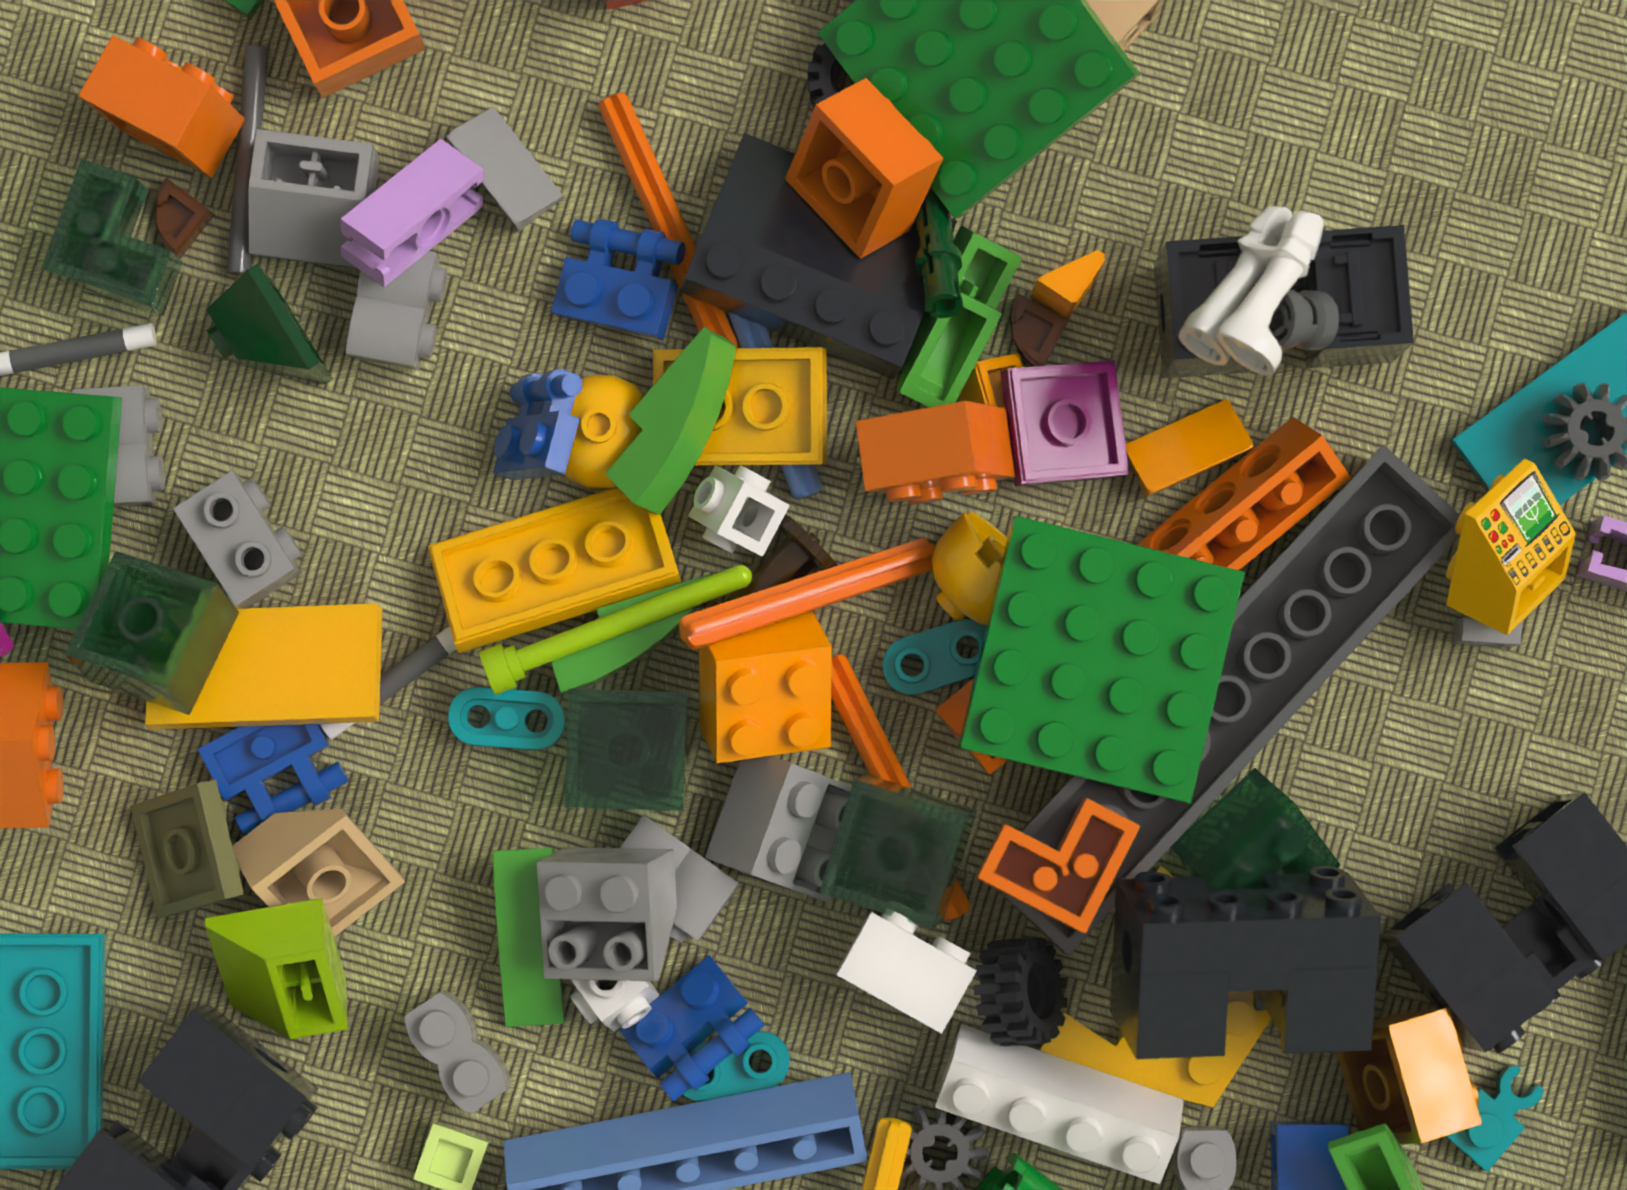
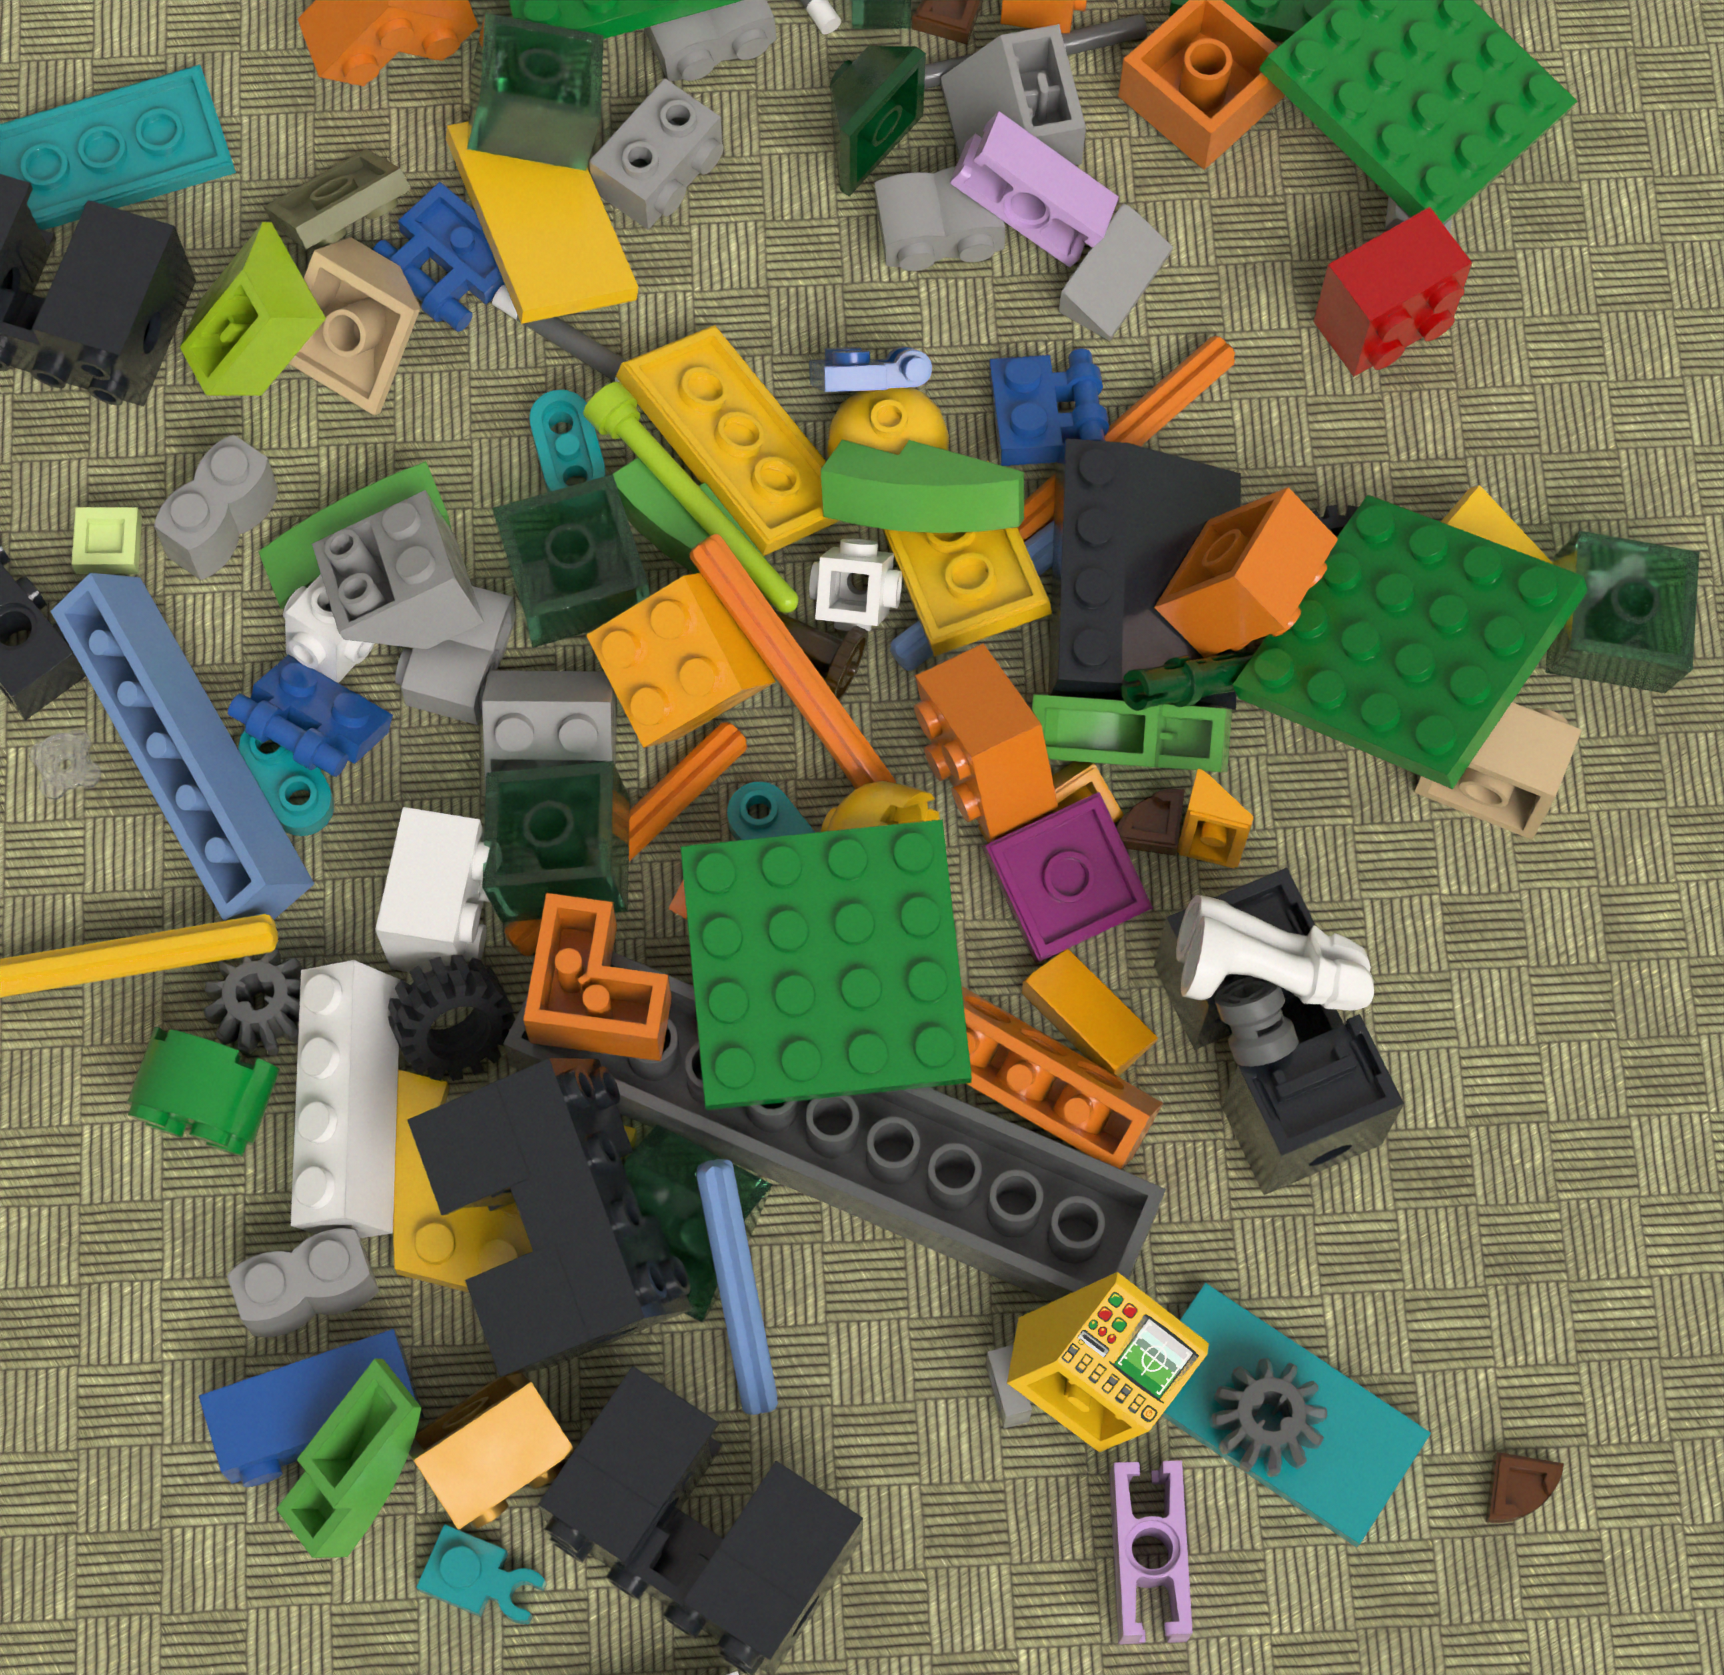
camera: 70 degrees right, 15 degrees down
(1342, 827) = (737, 1286): none -> medium blue axle

